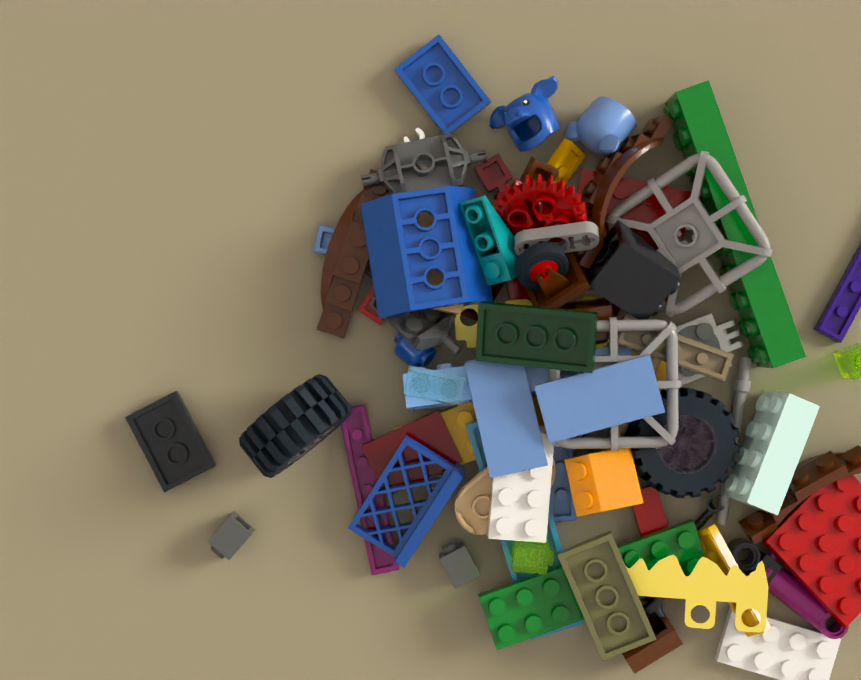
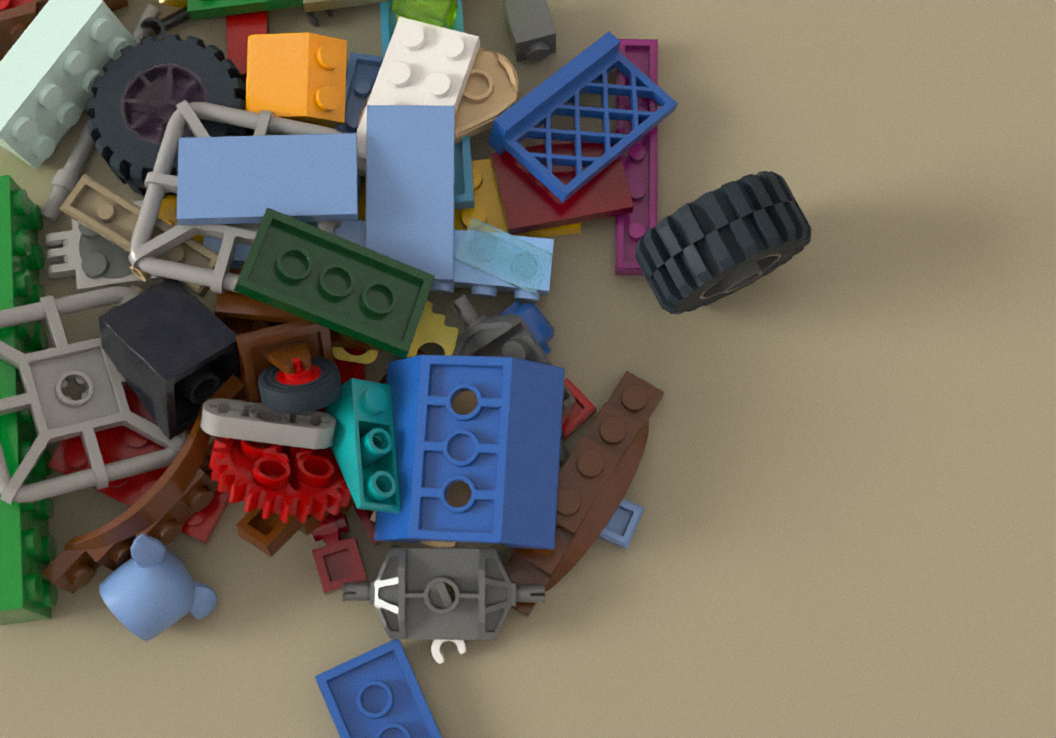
camera: 170 degrees left, 15 degrees down
(170, 441) = (915, 279): black plate -> none
(230, 536) = (849, 128): dark grey brick -> none
(530, 116) = (261, 633): blue piece -> none
(566, 159) = (226, 559): yellow plate -> none

